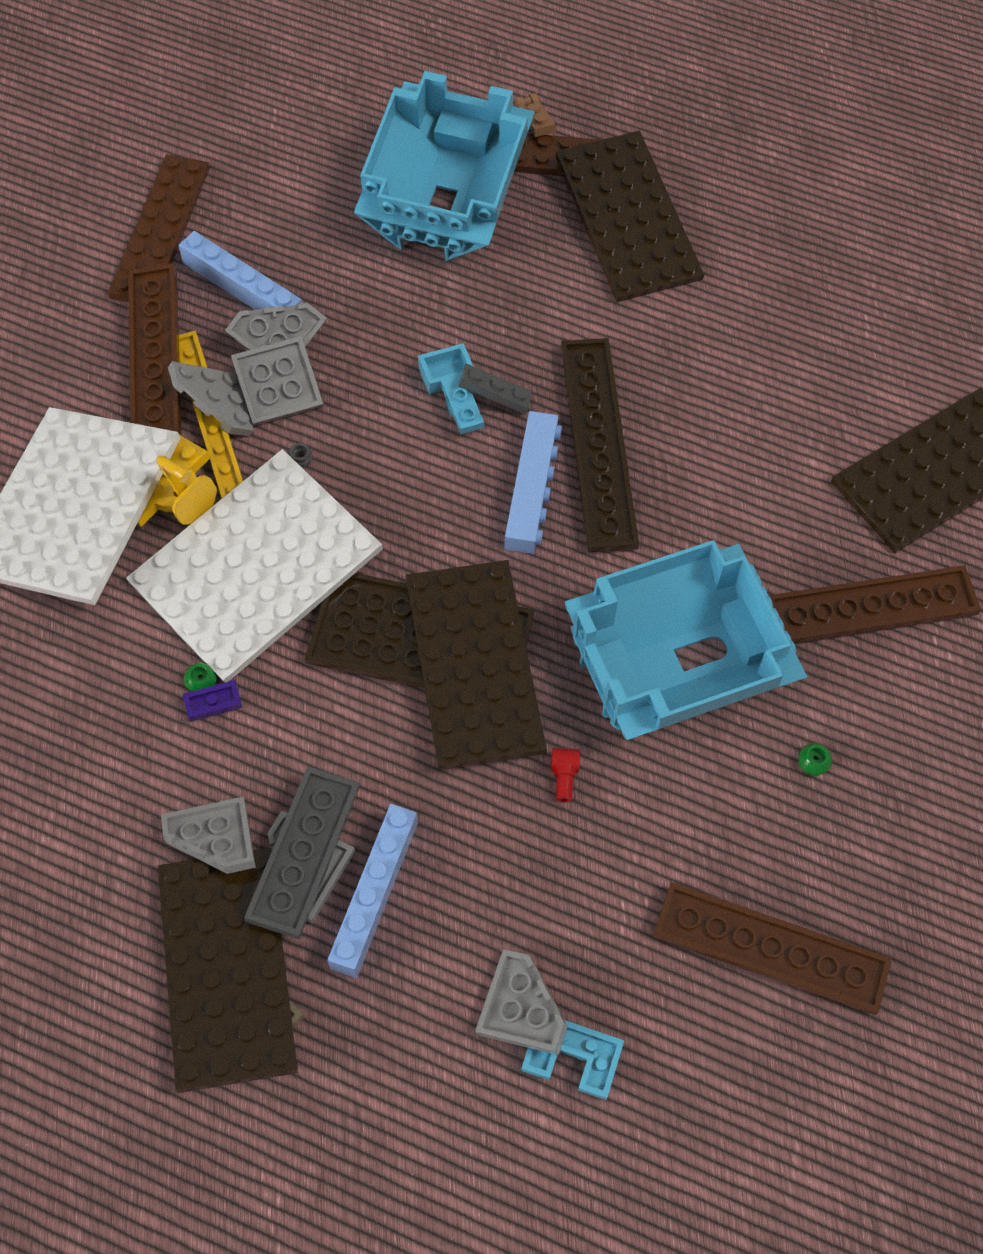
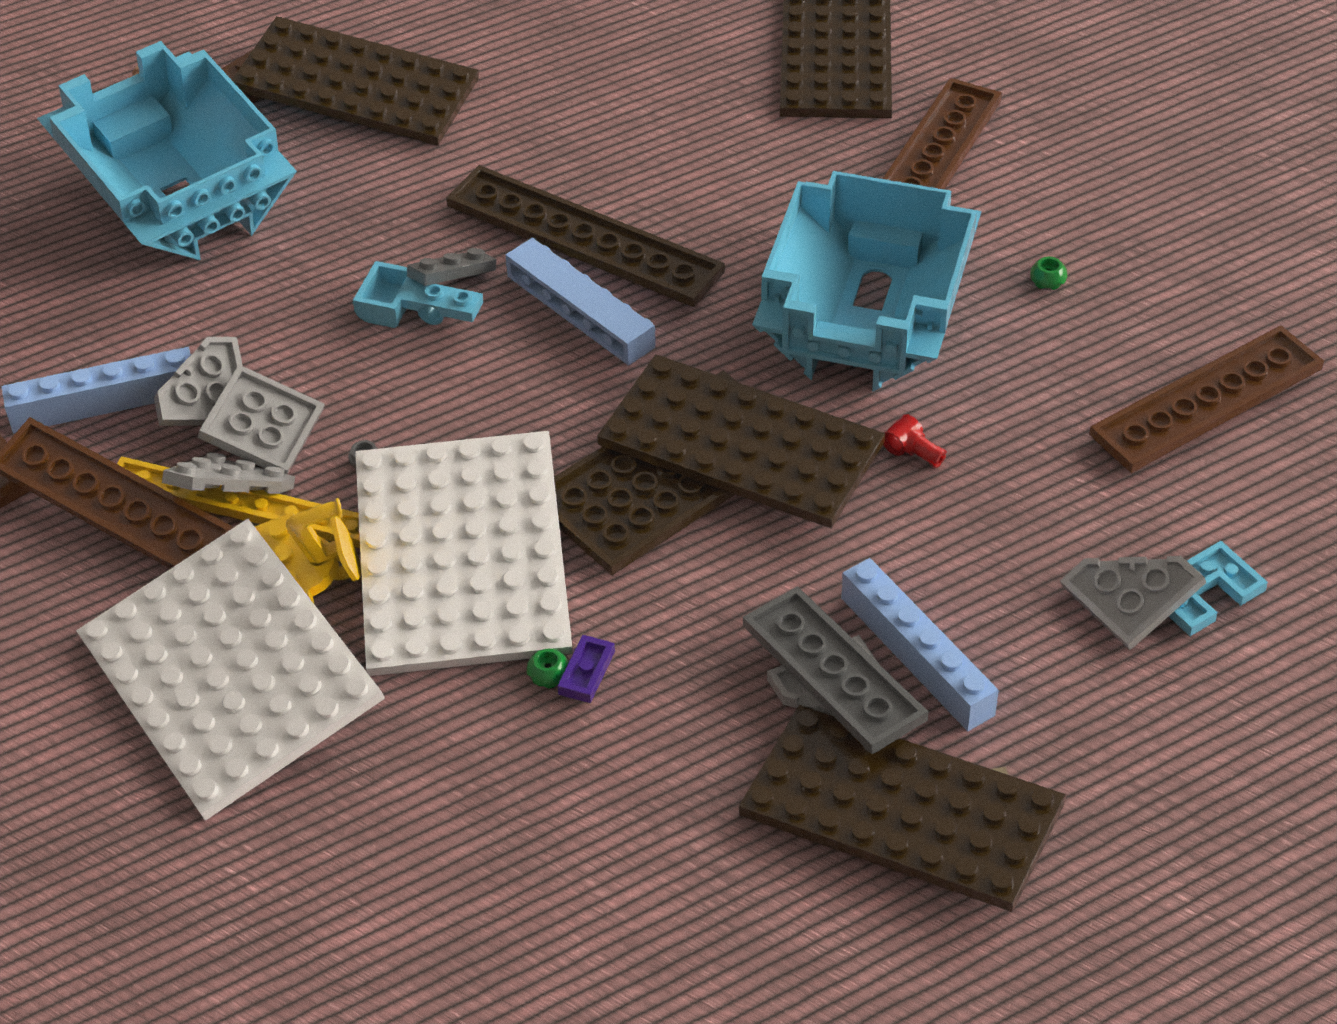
camera: 50 degrees left, 15 degrees down
(213, 834) = (745, 736): light grey plate -> none

